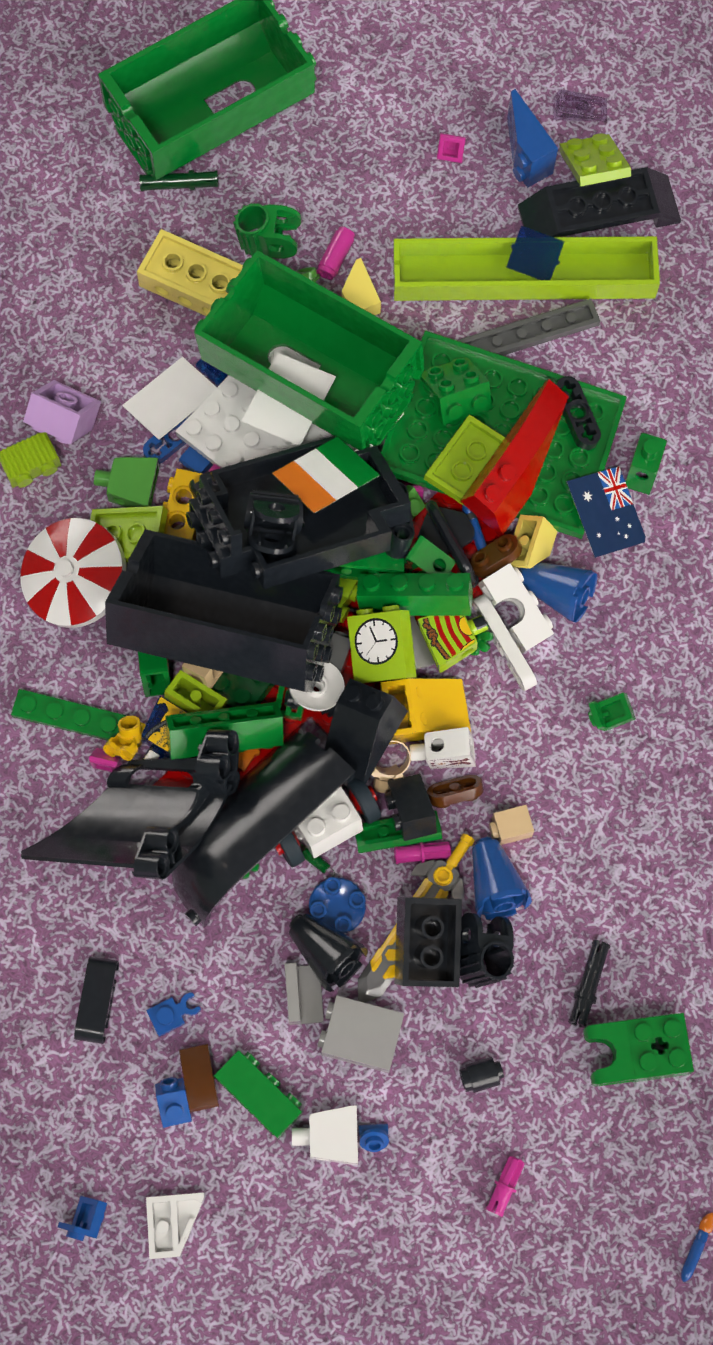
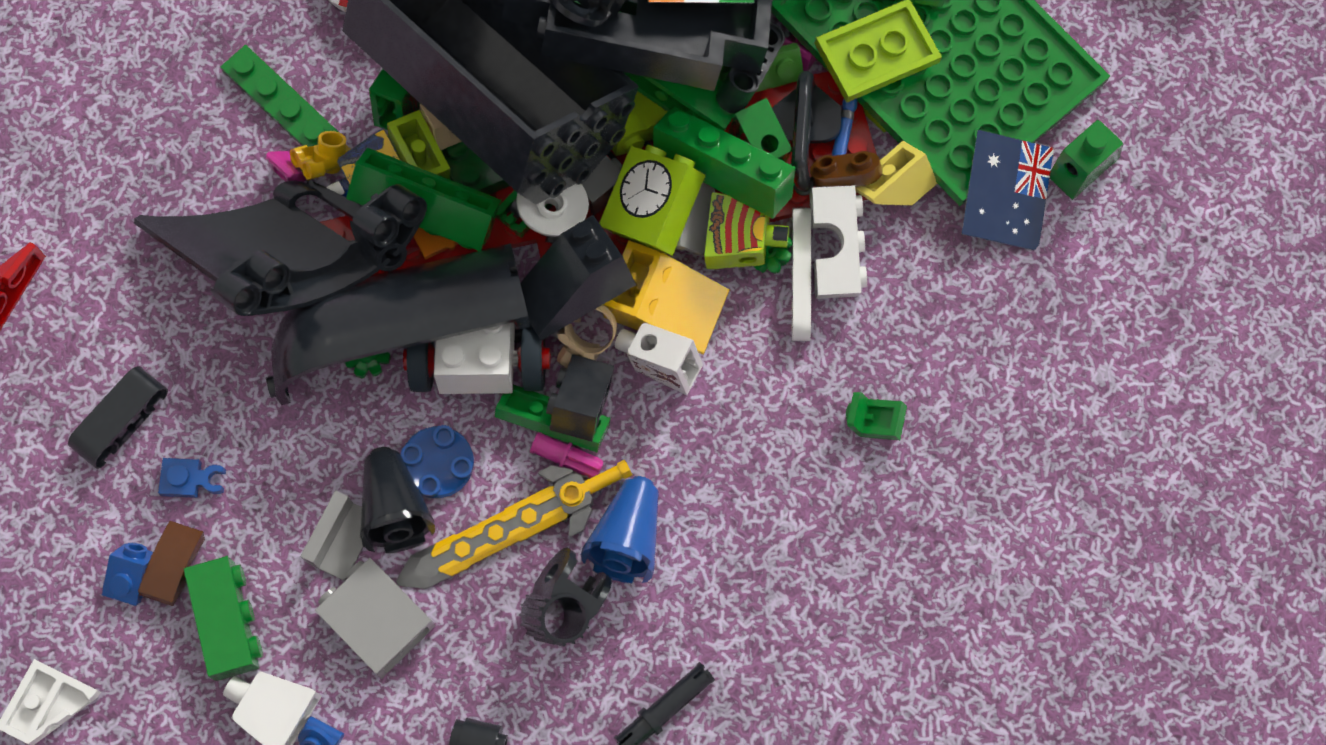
camera: 35 degrees right, 0 degrees up
(317, 862) = (447, 403): green piece -> none
(428, 942) = (505, 556): black brick -> none
(455, 791) = (645, 408): reddish brown plate -> none
(511, 825) = (683, 480): tan brick -> none
(516, 464) = (932, 80): red wedge -> none
(561, 587) = (903, 248): blue cone -> none
(576, 425) = (1049, 52): black beam -> none

